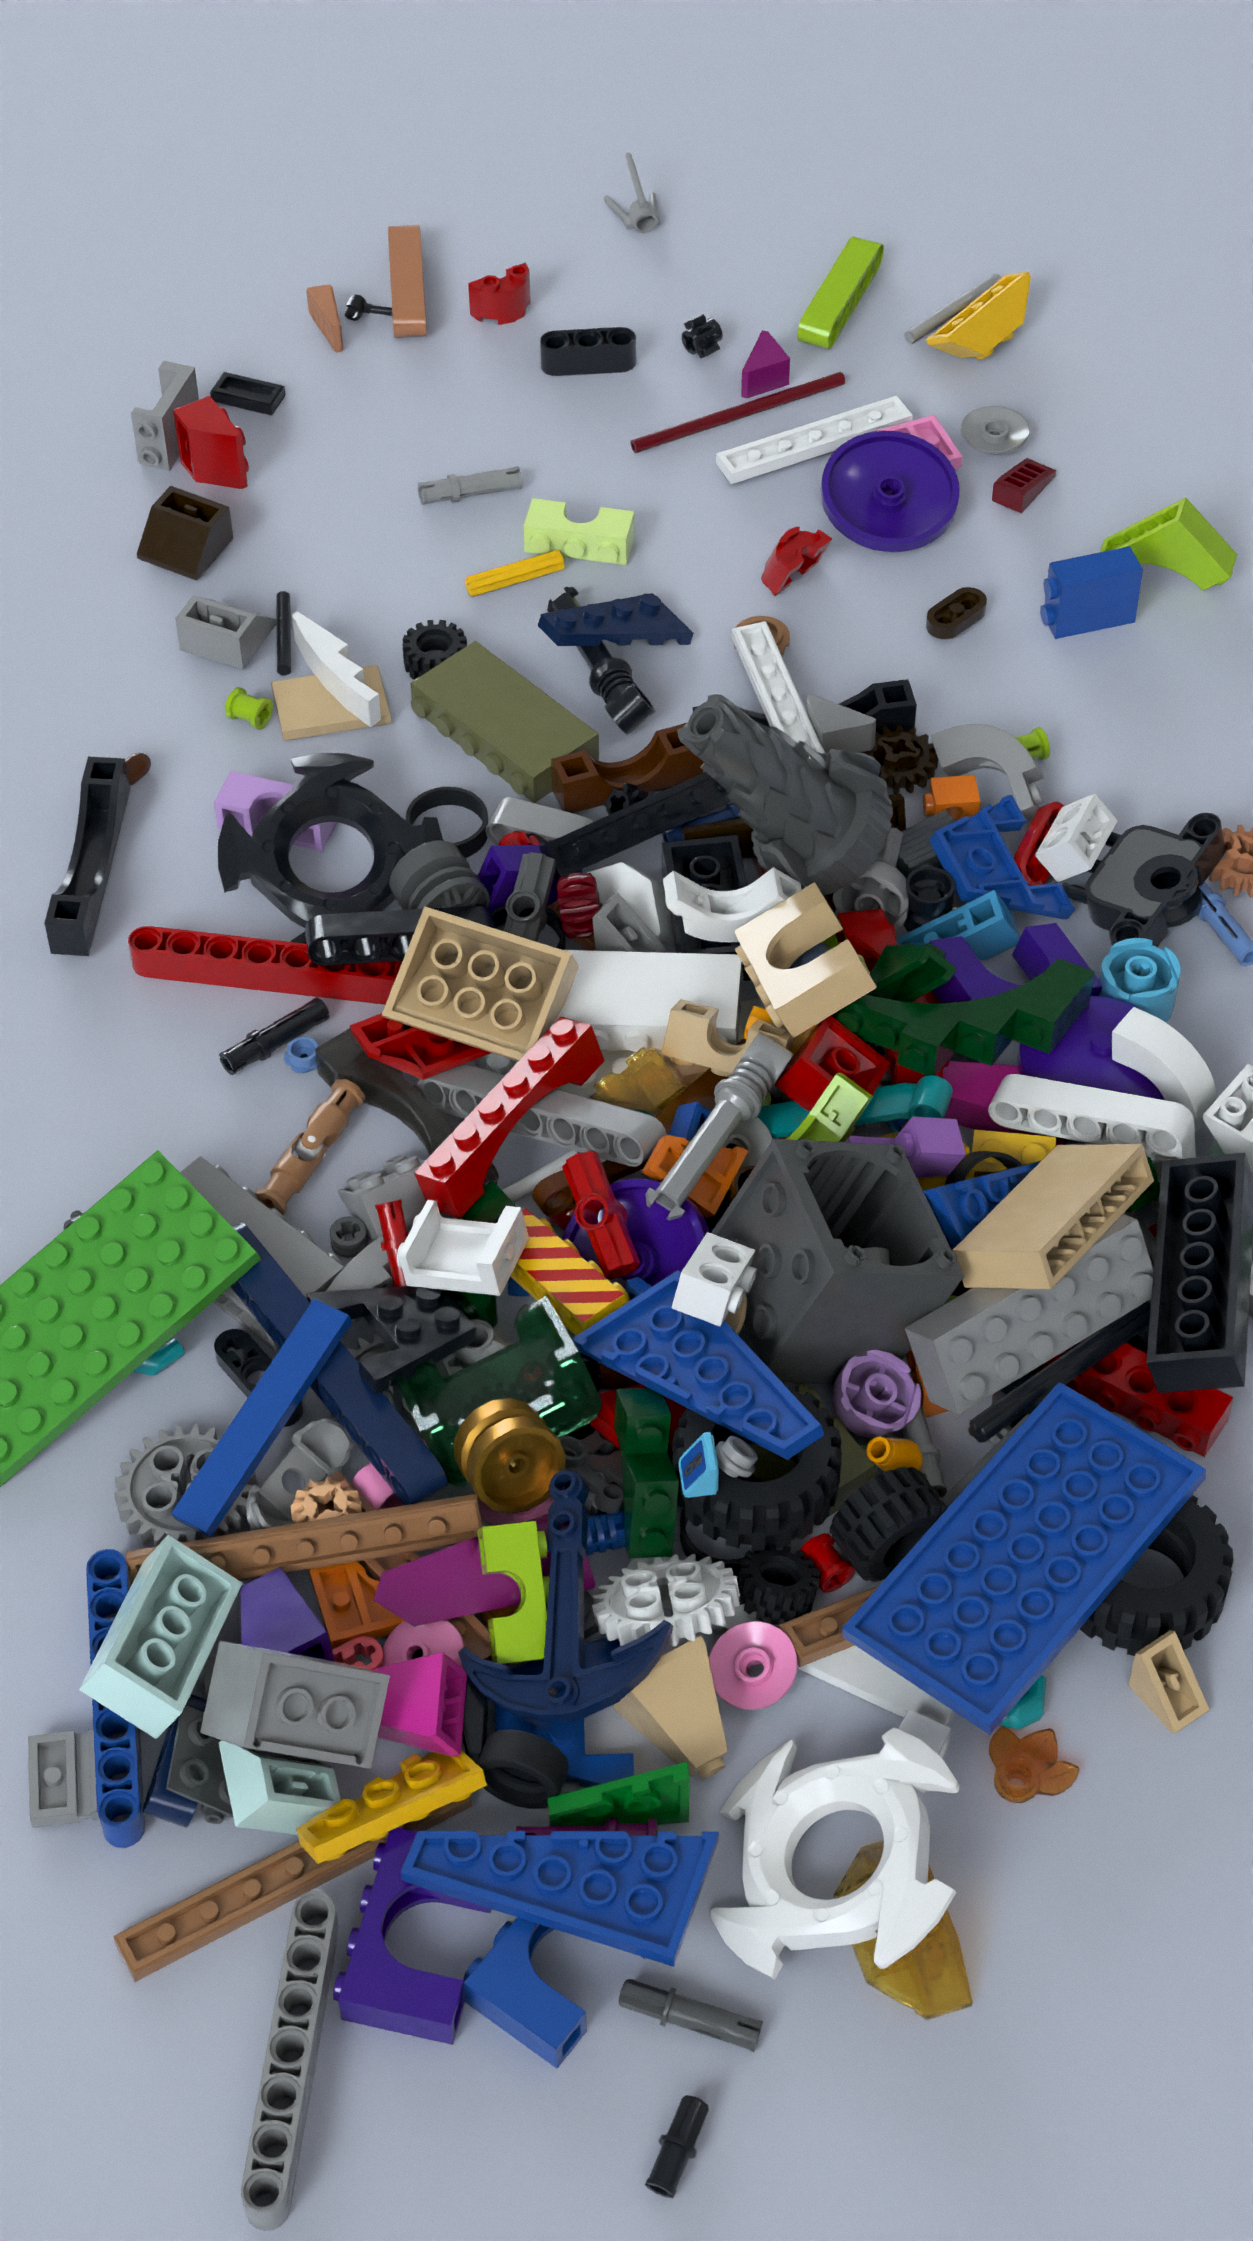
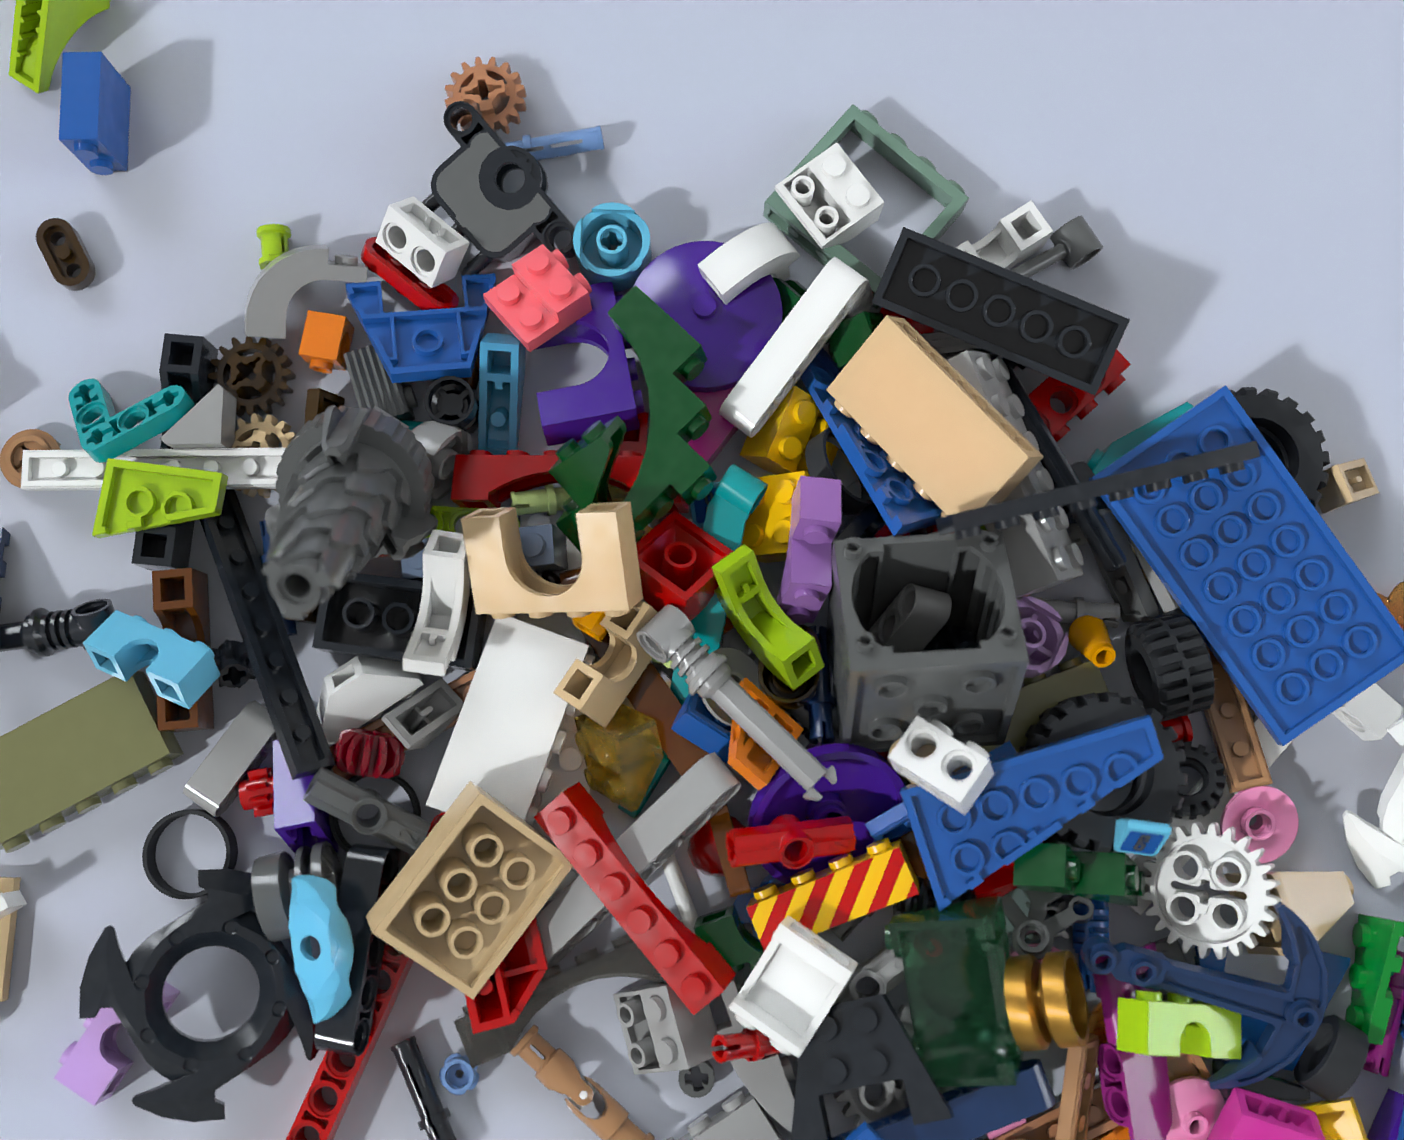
camera: 75 degrees left, 30 degrees up
(400, 891) = (317, 914): none -> medium azure piece
(615, 741) = (177, 667): none -> medium azure arch
(736, 1457) = (1139, 800): light grey plate -> none
(756, 692) = (154, 496): none -> lime wing
(817, 669) = (115, 432): none -> teal beam
(1047, 1358) = (1084, 494): none -> black plate
(1057, 928) = (540, 297): none -> coral plate

